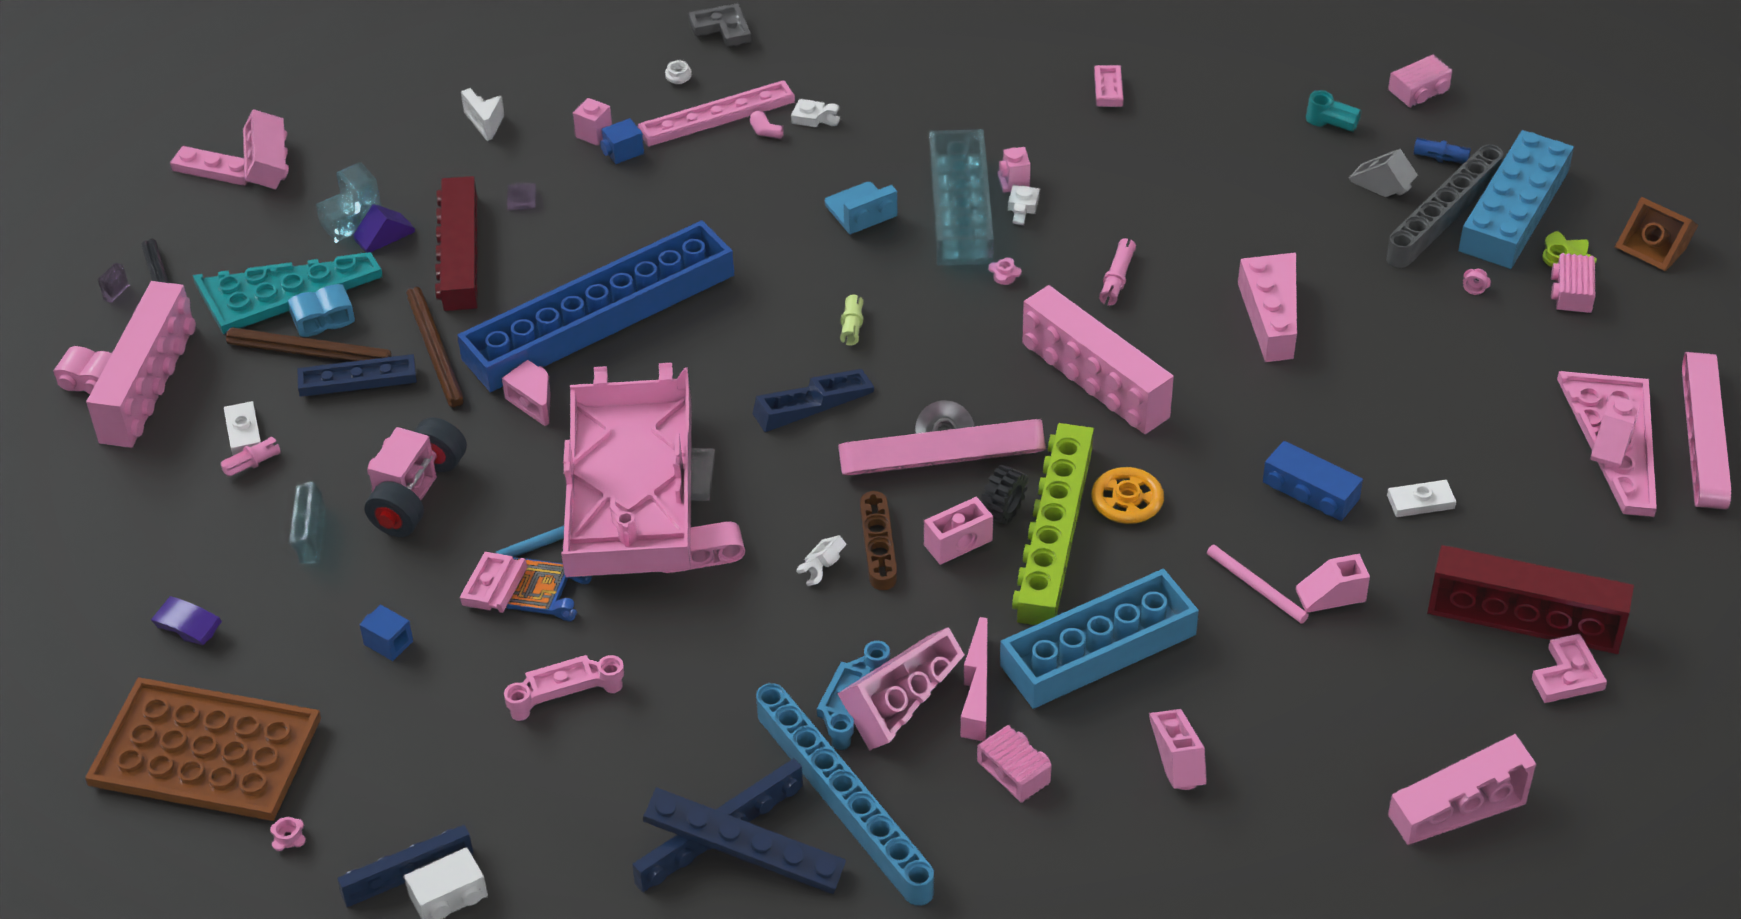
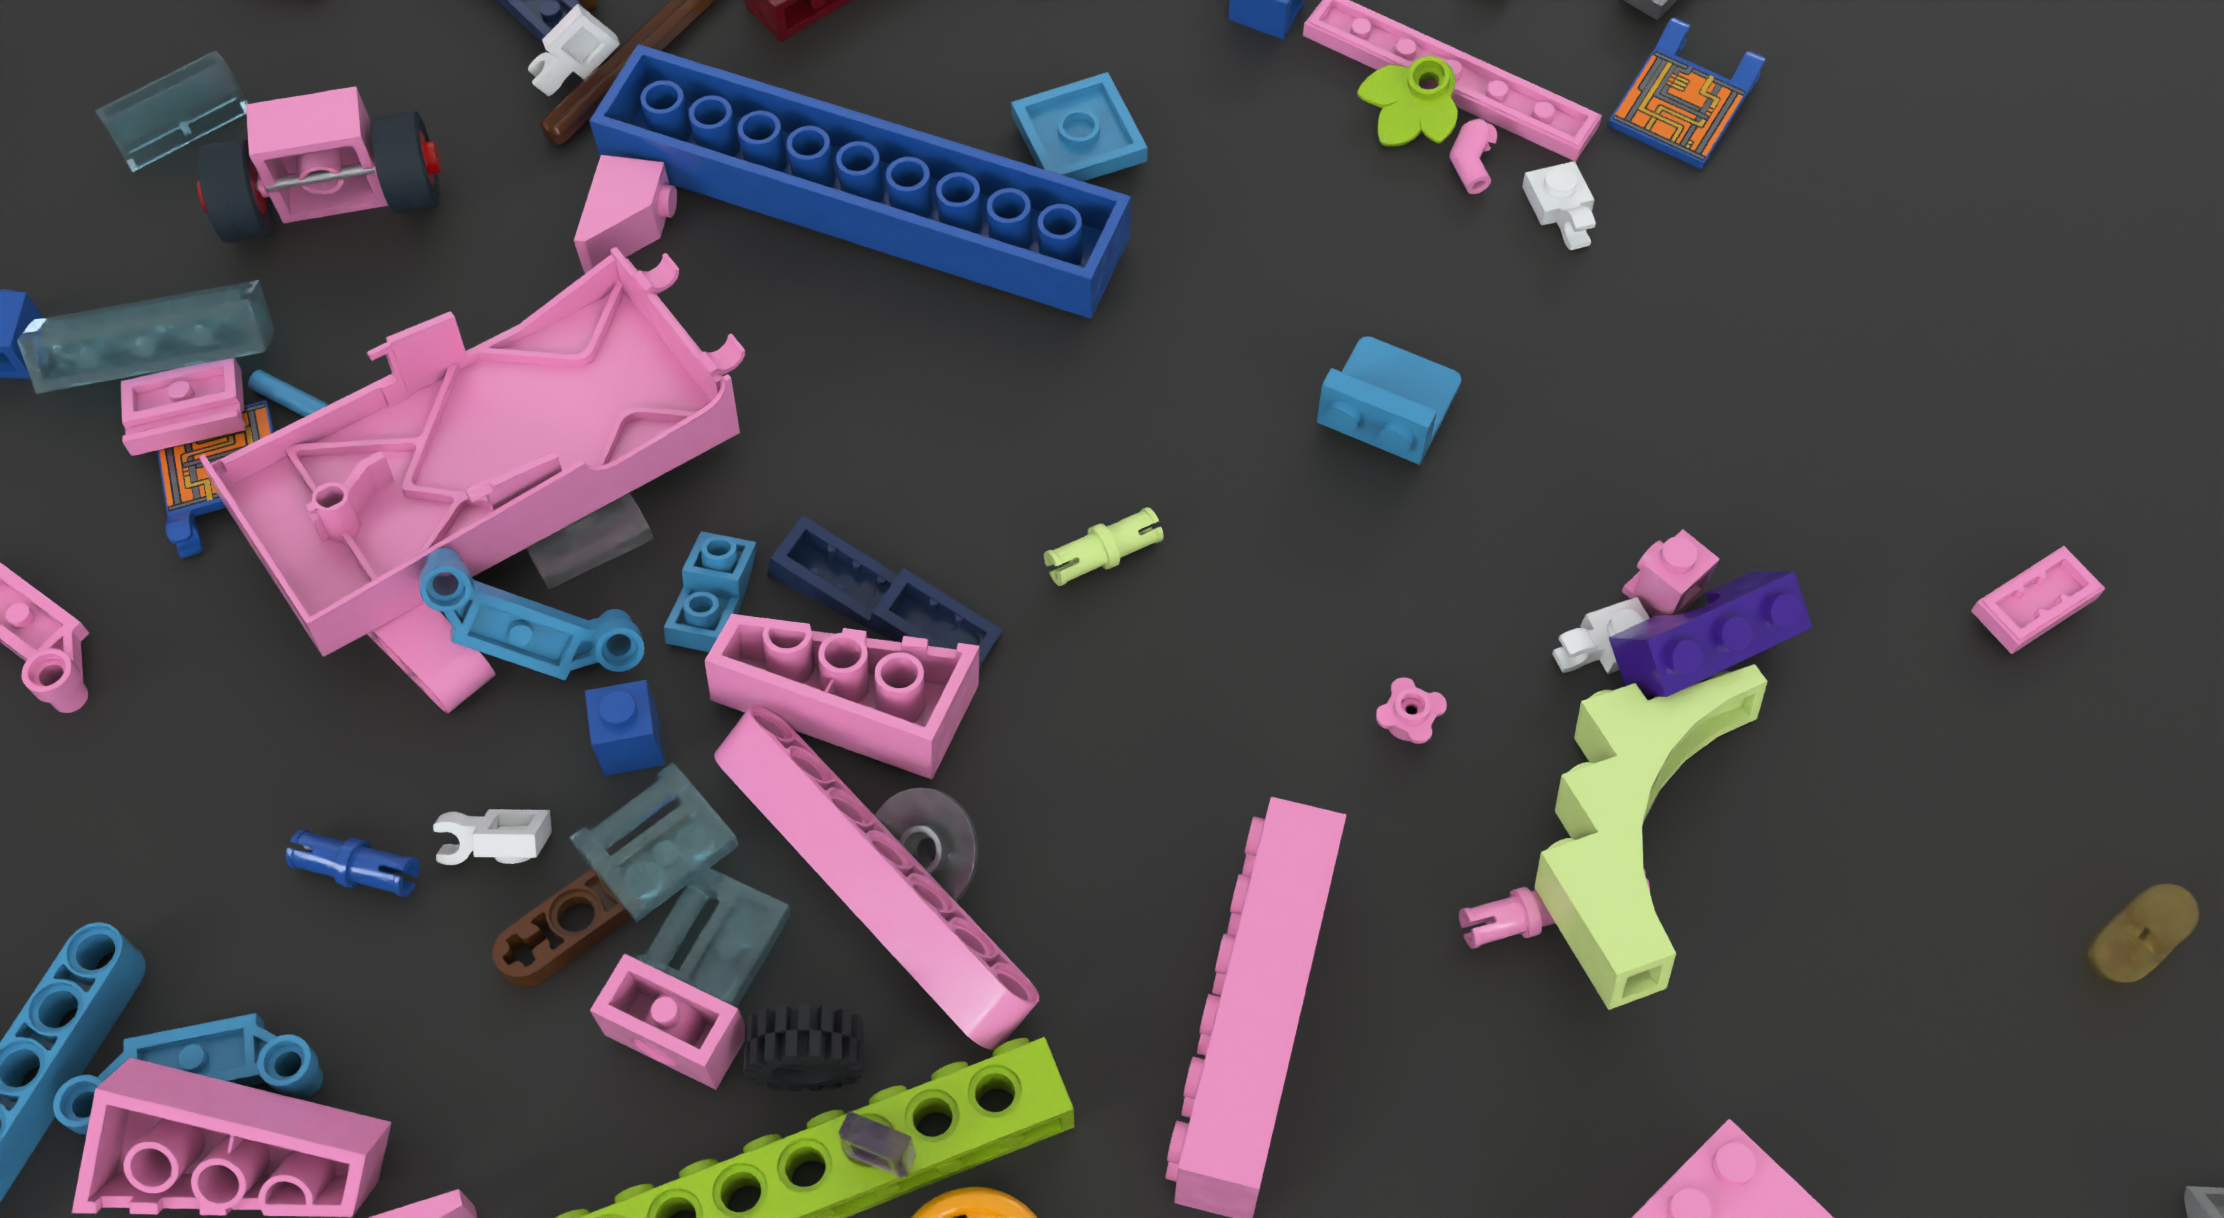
camera: 55 degrees right, 15 degrees up
(424, 364) = (575, 45): none -> white plate
(446, 574) = (146, 336): none -> clear light blue brick
(633, 230) = (1080, 129): none -> dark azure plate
(724, 130) = (1407, 106): none -> lime plate
(734, 501) = (522, 628): none -> dark azure plate
(758, 448) = (711, 591): none -> dark azure slope
(792, 610) = (353, 862): none -> blue pin
(799, 57) = (1683, 104): none -> flag
(808, 495) = (625, 727): none -> blue brick
(860, 413) = (846, 688): none -> bright pink wedge
(883, 501) = (666, 853): none -> clear light blue plate
(928, 500) = (730, 943): none -> clear light blue plate
(960, 197) = (1519, 533): clear light blue brick -> none
(1053, 160) = (1689, 647): none -> dark purple arch
(1067, 478) = (877, 1144): none -> tile
(1119, 241) = (1597, 876): none -> yellowish green arch
(1255, 133) = (2168, 915): none -> clear yellow piece

